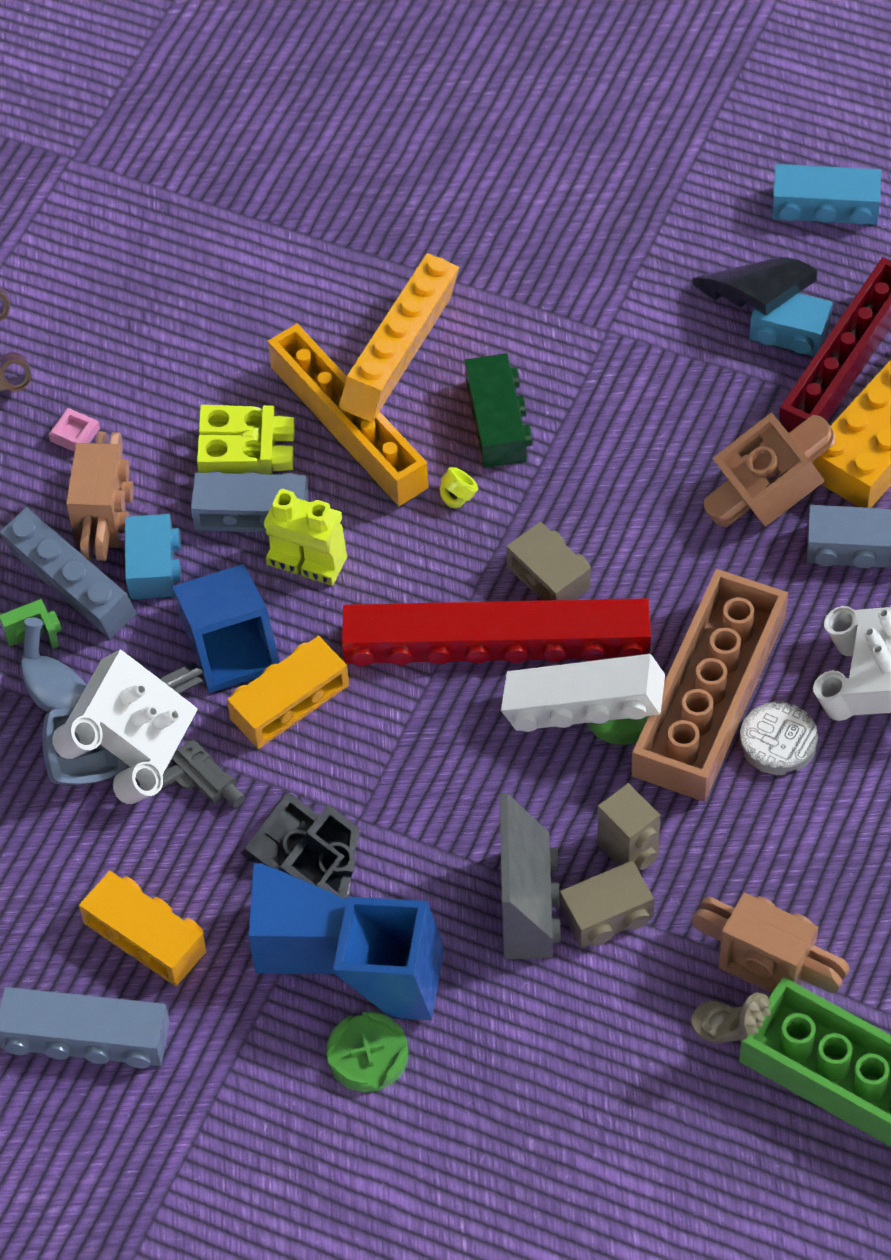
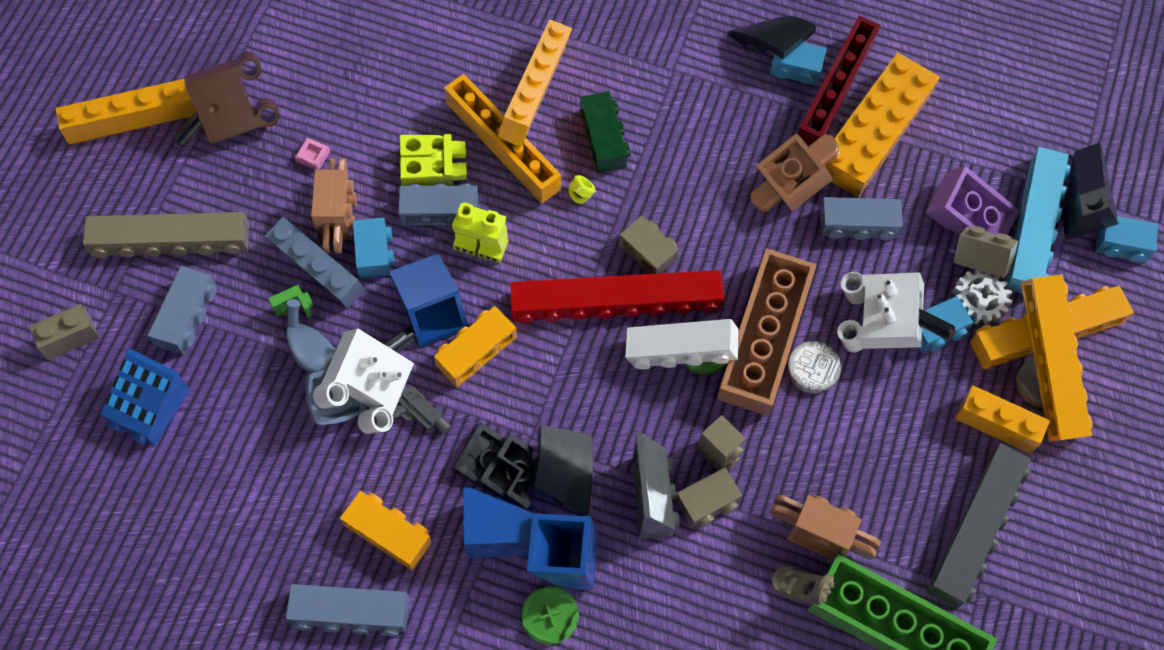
camera: 10 degrees left, 10 degrees up
(401, 851) = (564, 467): none -> black slope

